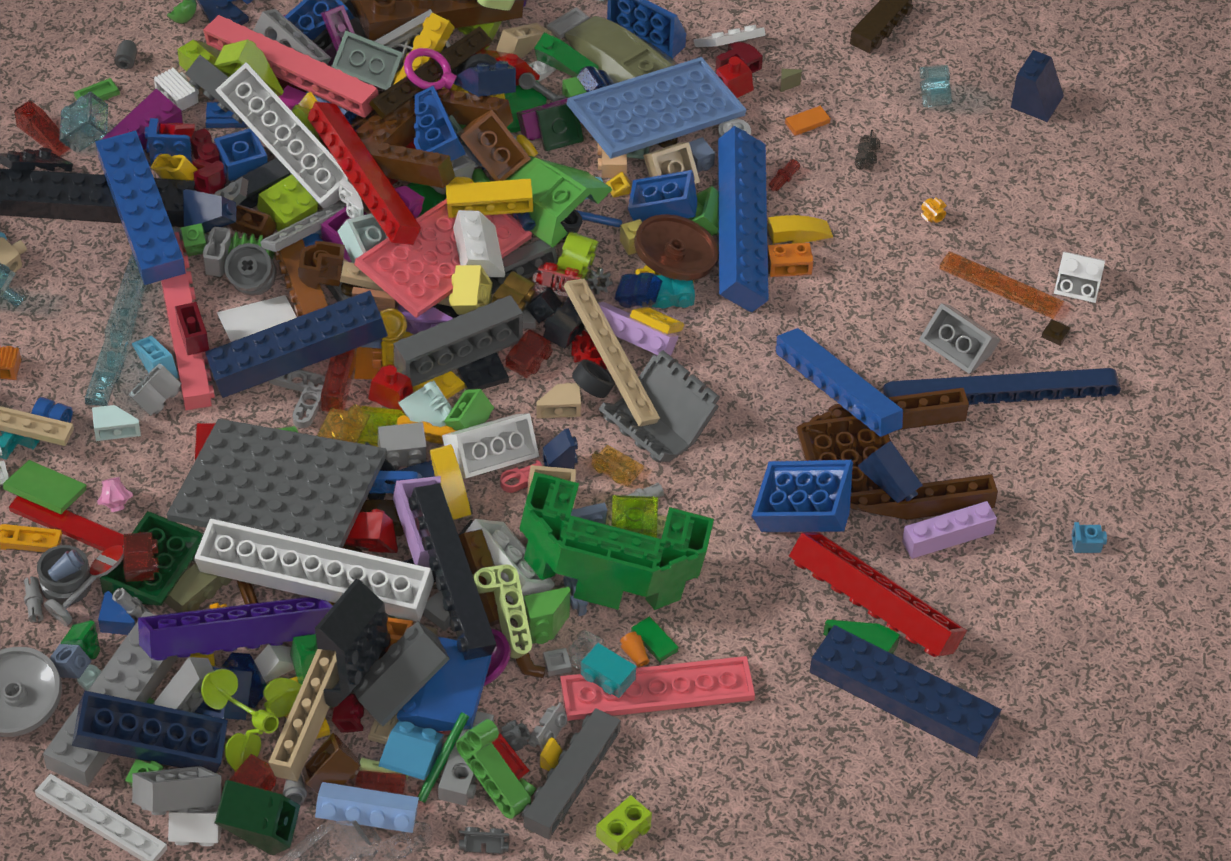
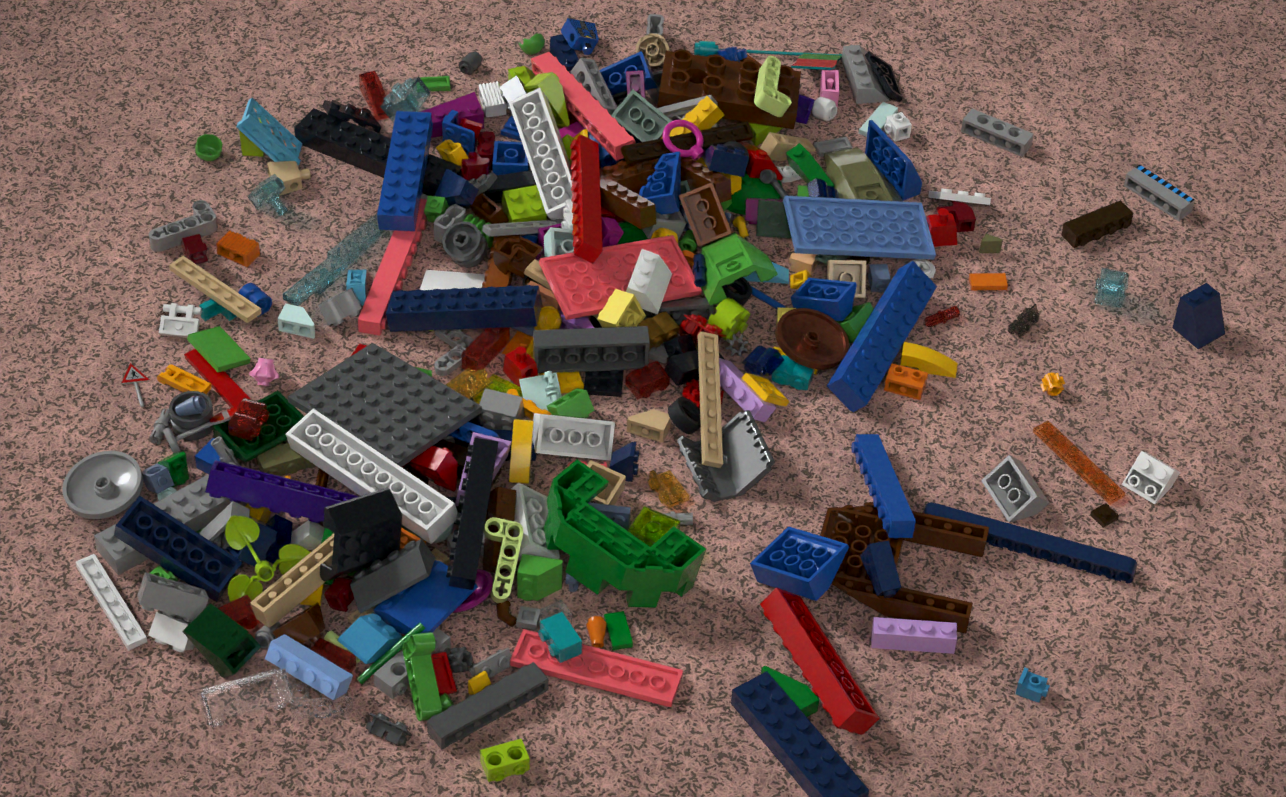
camera: 25 degrees right, 5 degrees down
(192, 328) = (390, 270): dark red brick -> none
(490, 197) = (677, 248): yellow brick -> none

